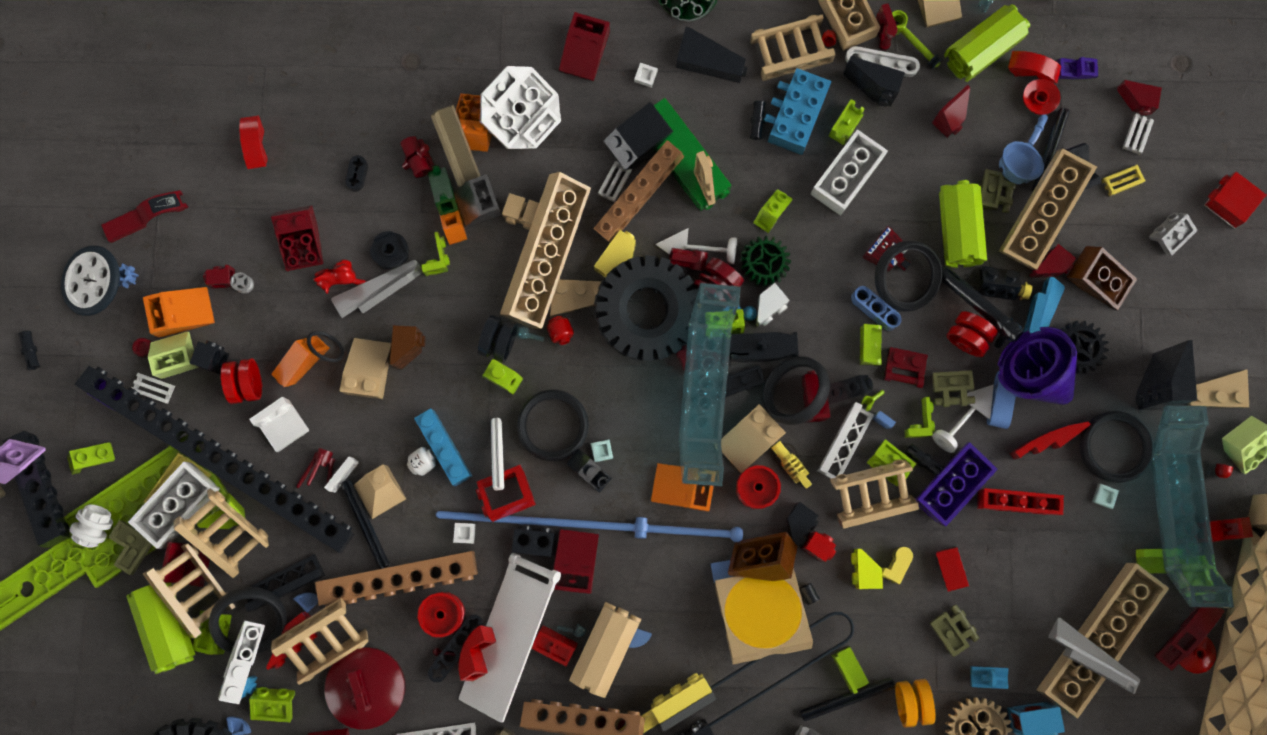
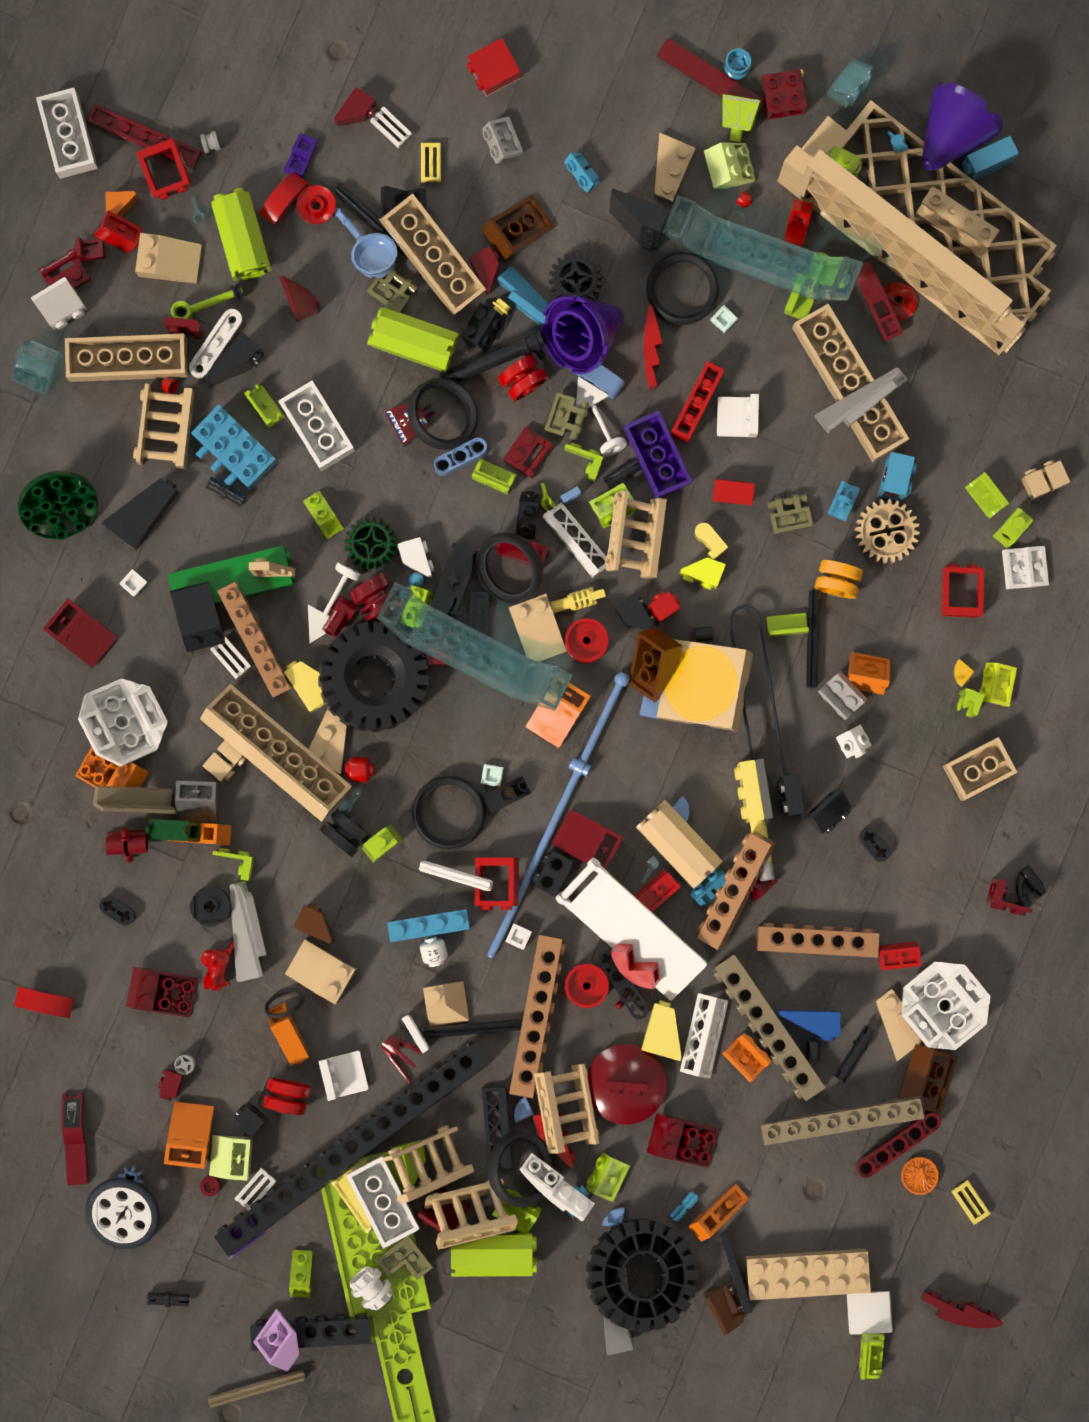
camera: 70 degrees left, 5 degrees up
(423, 703) = (662, 1032): none -> light yellow slope
(568, 691) = (702, 892): none -> dark azure hinge
(1023, 545) = (737, 416): none -> white bracket
(1182, 307) = (576, 165): none -> dark azure hinge

